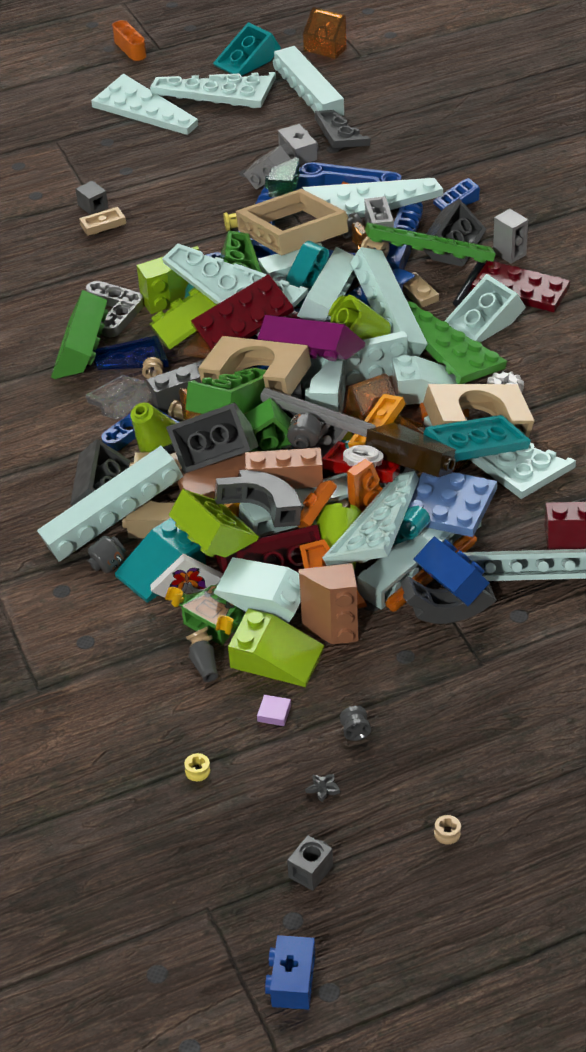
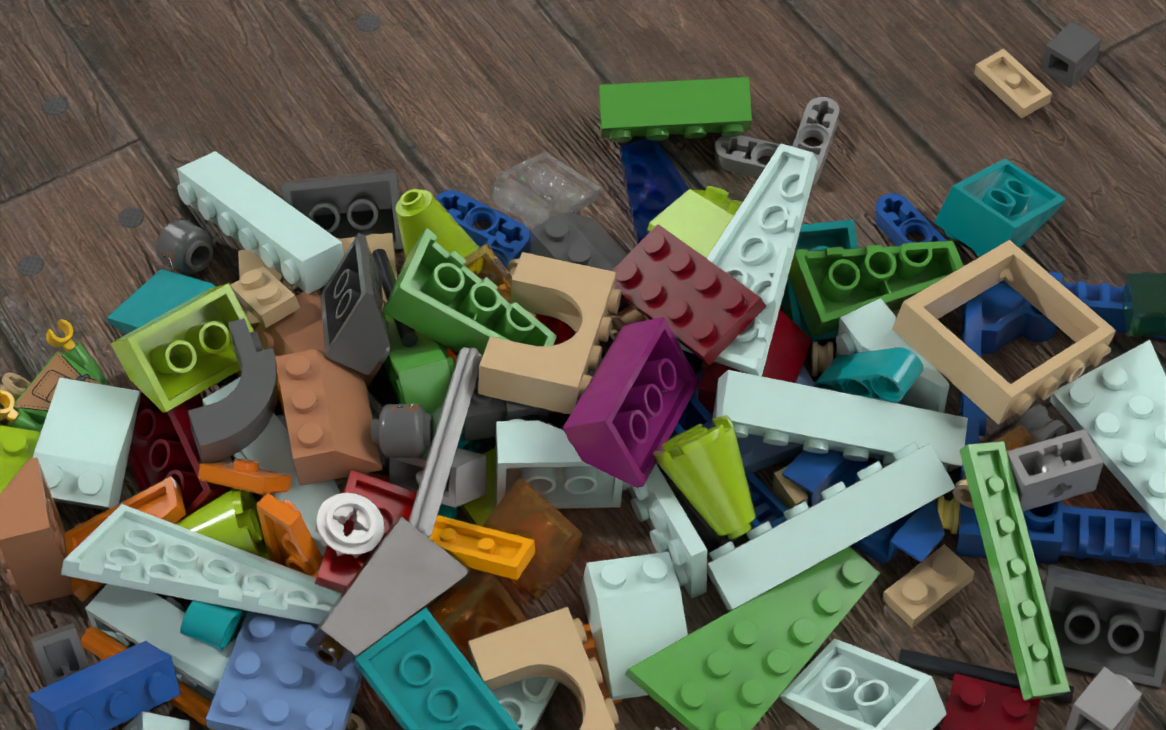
camera: 80 degrees right, 10 degrees up
(152, 362) = (623, 224): tan bush -> none
(160, 285) = (847, 192): lime slope -> none
(165, 501) = (265, 296): none -> tan plate
(186, 575) = (114, 331): white tile -> none
(193, 231) = (997, 207): none -> teal slope
(230, 221) = (1063, 263): light yellow bush -> none

